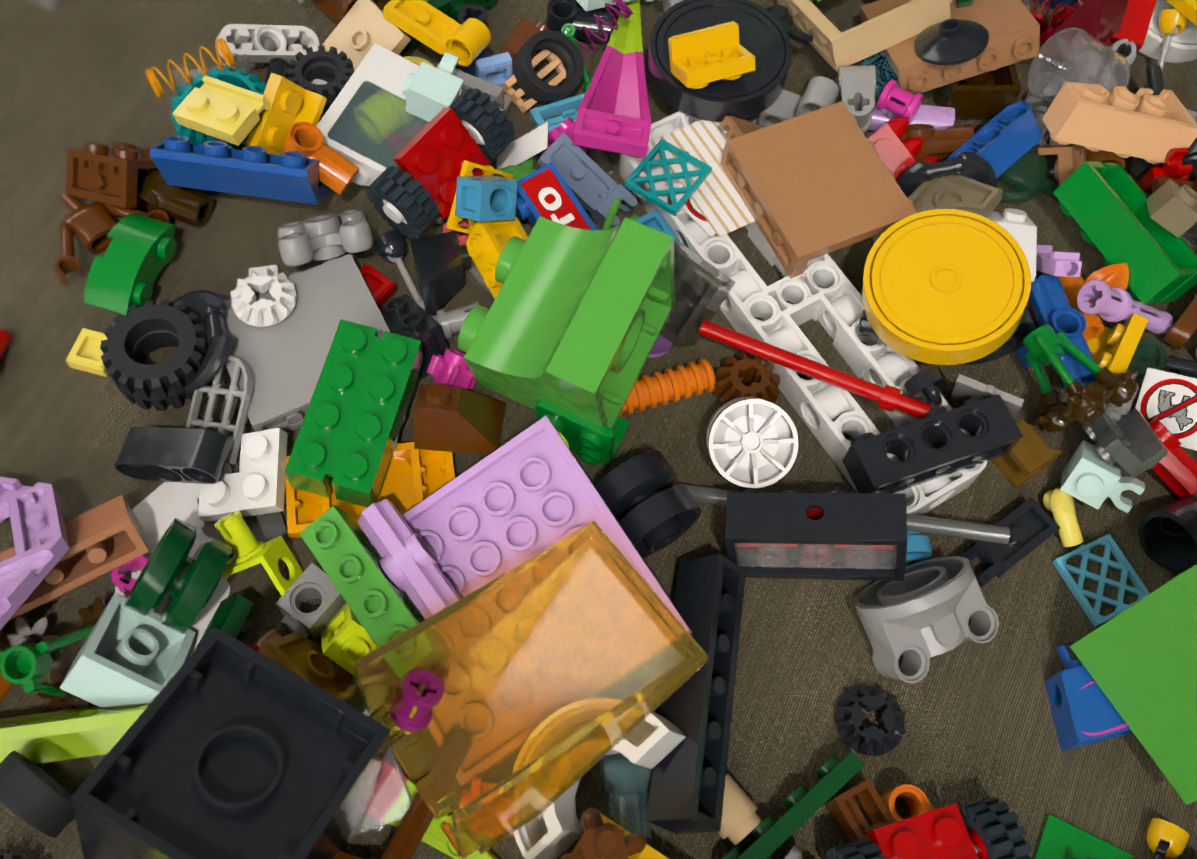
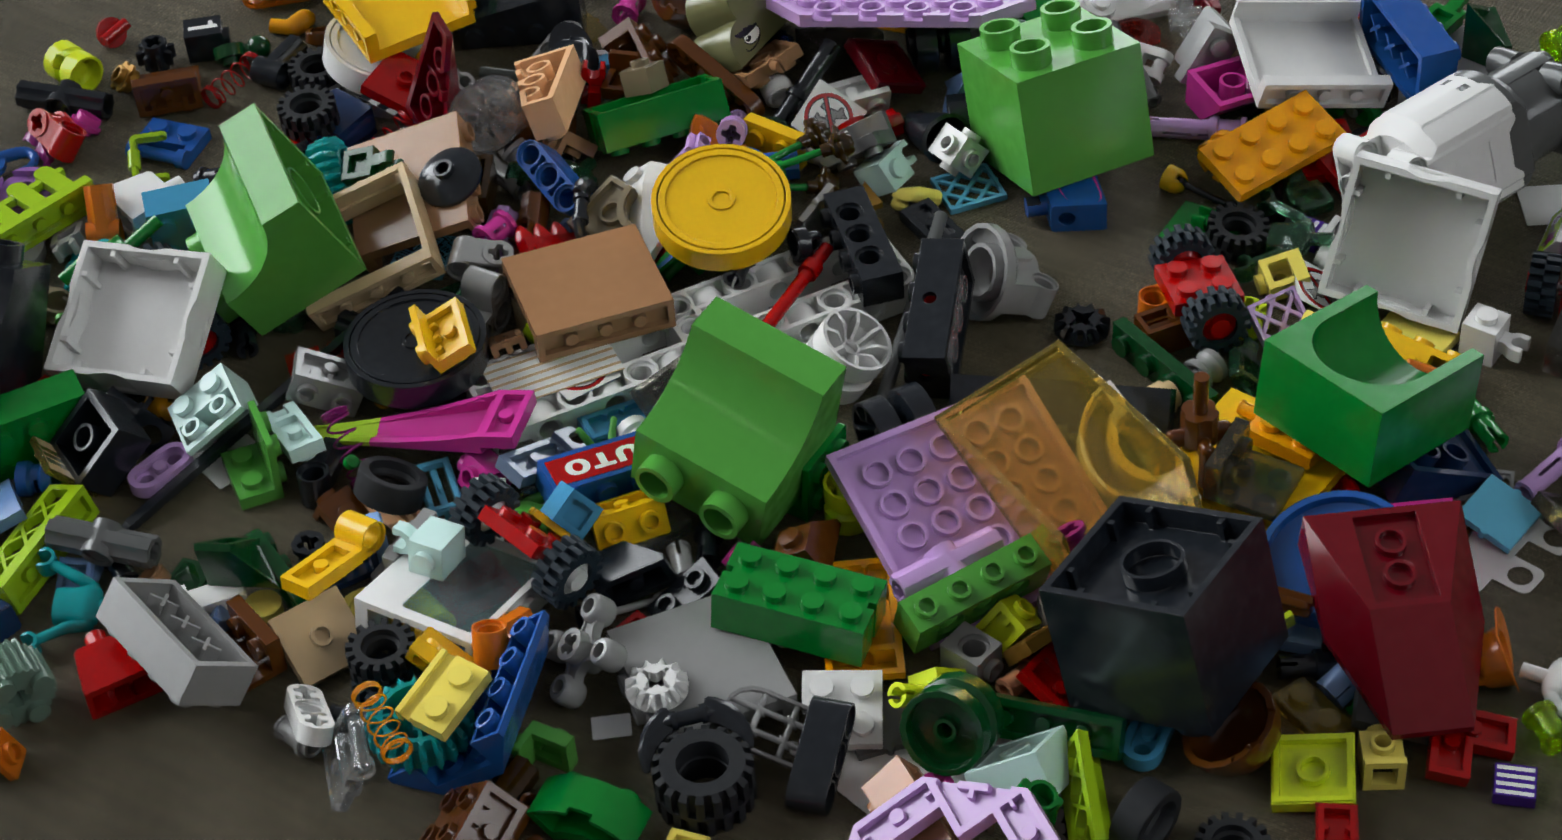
camera: 75 degrees left, 20 degrees down
(226, 226) = (547, 745): none -> bright green bracket
(652, 195) = (572, 409): teal window -> none
(1149, 557) = (958, 150): none -> white brick

